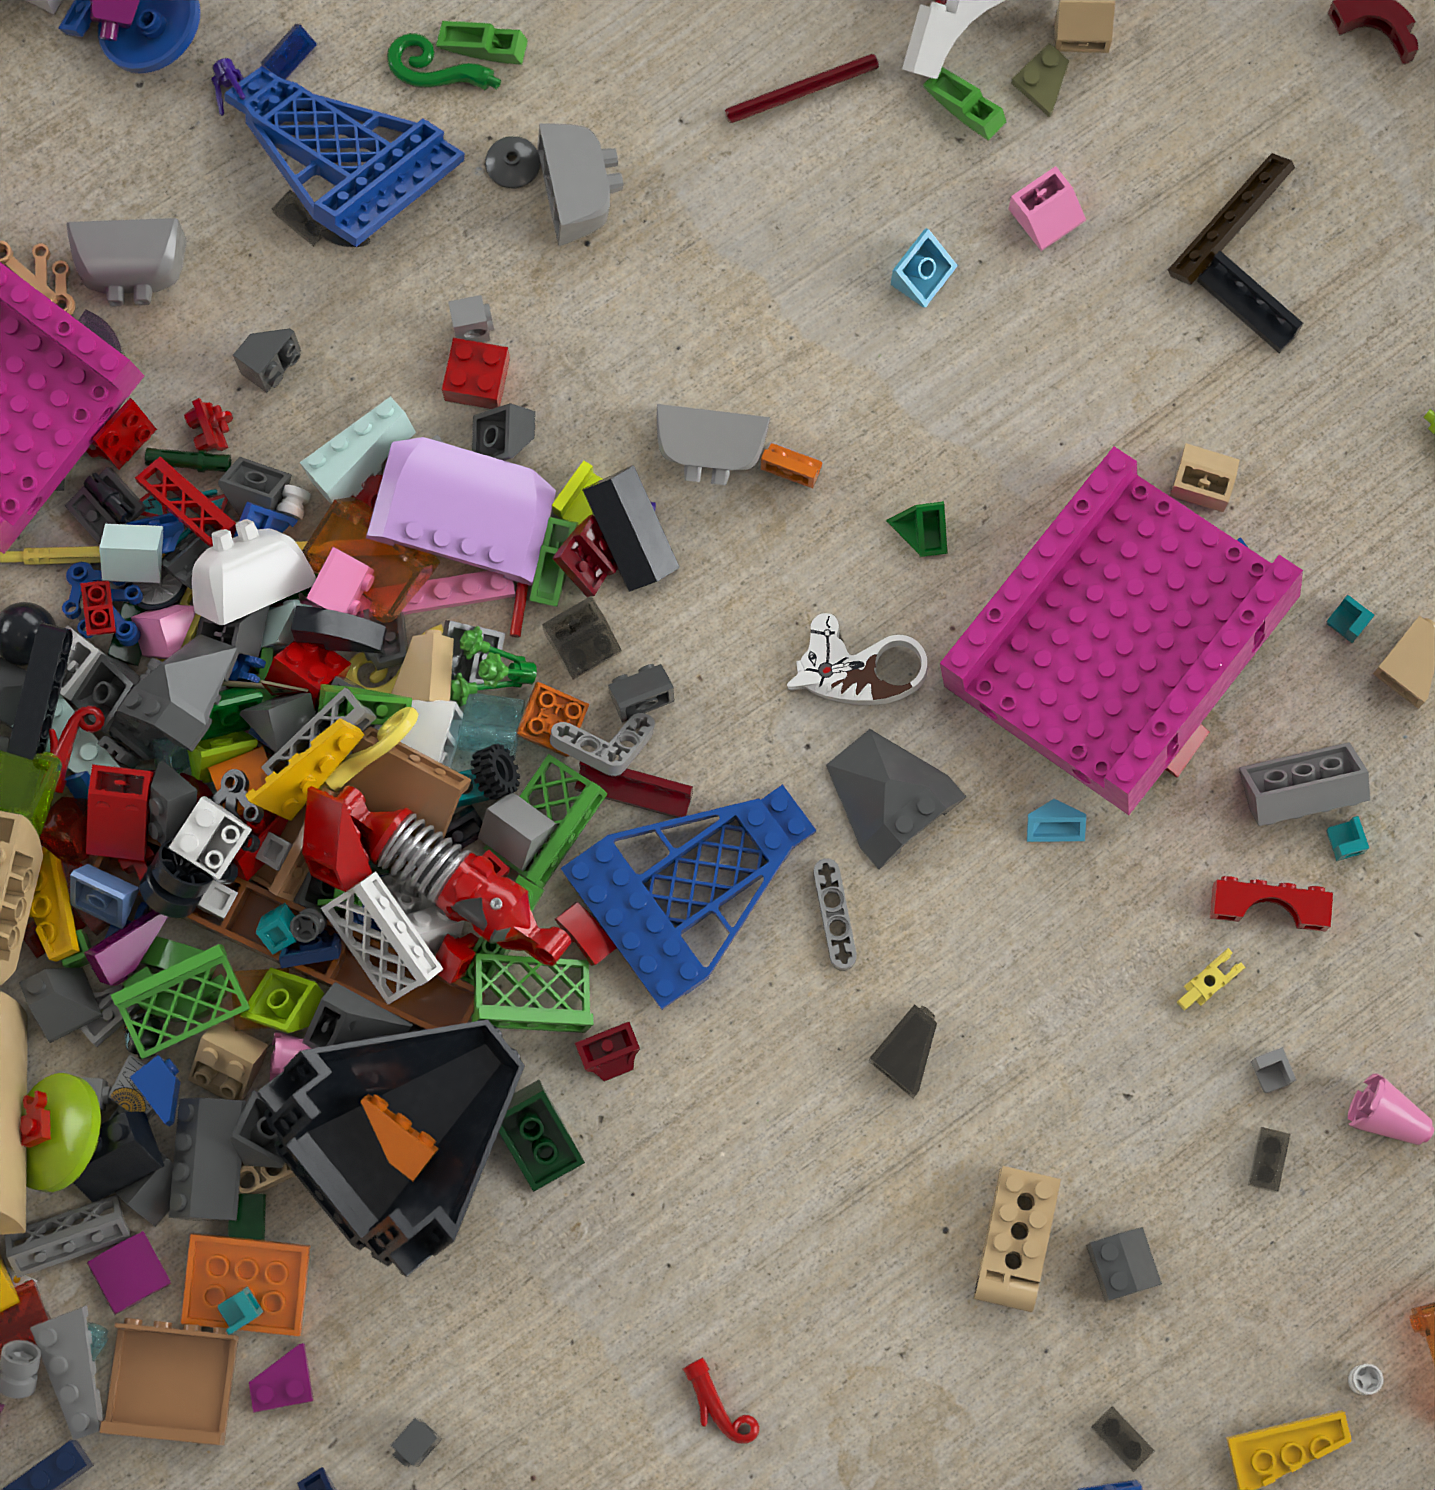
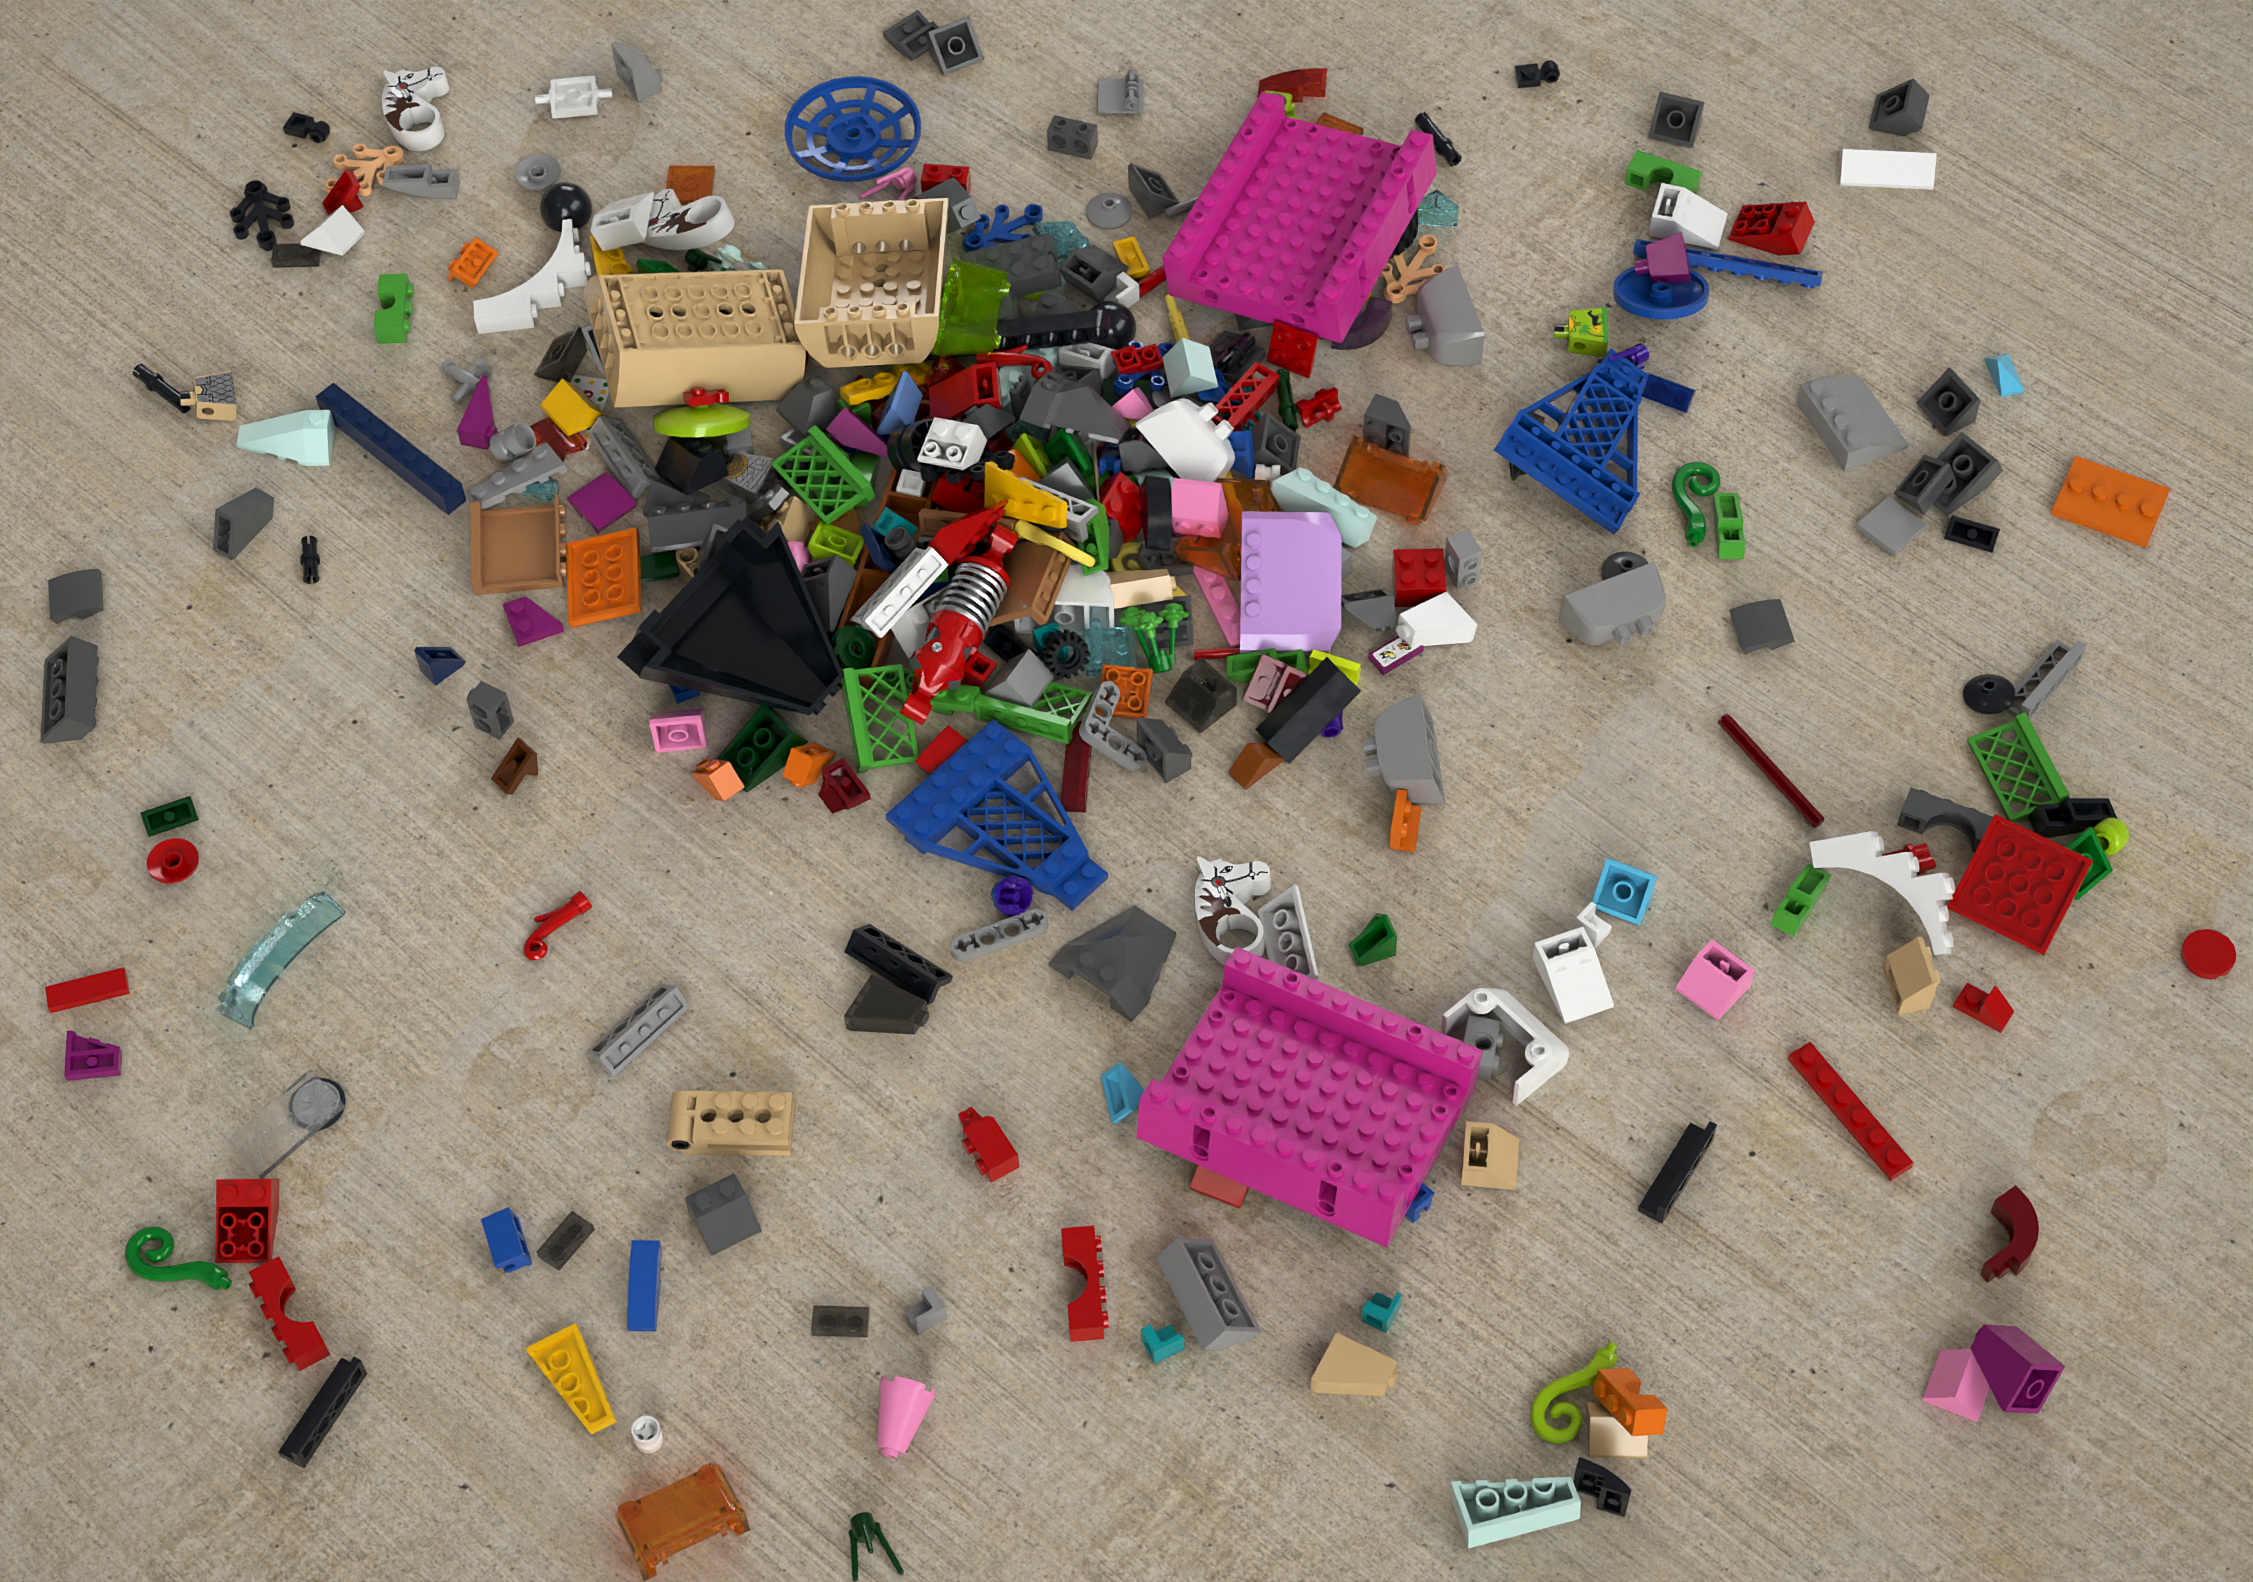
camera: 80 degrees right, 20 degrees down
(160, 1087) = (747, 478): blue slope -> none
(180, 115) = (1585, 332): none -> lime torso
(194, 1069) = (768, 503): none -> light grey wing
(240, 1309) = (582, 575): teal panel -> none
(274, 851) = (957, 504): light grey tile -> none
(338, 370) = (1390, 481): none -> clear orange windscreen
(401, 1143) = (731, 640): orange slope -> none
(425, 997) = (861, 639): none -> dark green plate
(456, 956) = (894, 650): red brick -> none
(486, 1224) = (678, 730): none -> bright pink slope
(500, 1423) = (516, 764): none -> reddish brown slope
(541, 370) = (1436, 623): none -> white slope
(563, 423) = (1393, 654): none -> tile
(565, 1190) = (717, 778): none -> orange slope
(567, 1084) = (806, 763): none -> orange slope
(620, 45) = (1762, 625): none -> dark grey slope
(676, 601) = (1254, 763): none -> dark orange slope
(796, 890) = (1012, 895): none -> dark purple piece
(852, 1030) = (897, 962): none -> black fence
(877, 1323) = (638, 1029): none -> light grey fence
(916, 613) = (1287, 933): none -> white slope
(955, 311) = (1593, 925): none -> white panel
(1012, 343) = (1572, 974): none -> white slope
(1032, 423) = (1543, 1049): none -> white windscreen
(1042, 78) = (1851, 961): olive wing -> none
(1060, 458) = (1485, 1033): none -> light grey brick
(1091, 972) = (987, 1144): none -> red hinge
(1193, 1360) = (644, 1285): none -> blue slope
(1199, 991) = (999, 1243): light yellow hinge -> none
(1210, 127) = (1850, 1111): none -> red plate
(1231, 218) = (1756, 1138): dark brown plate -> none

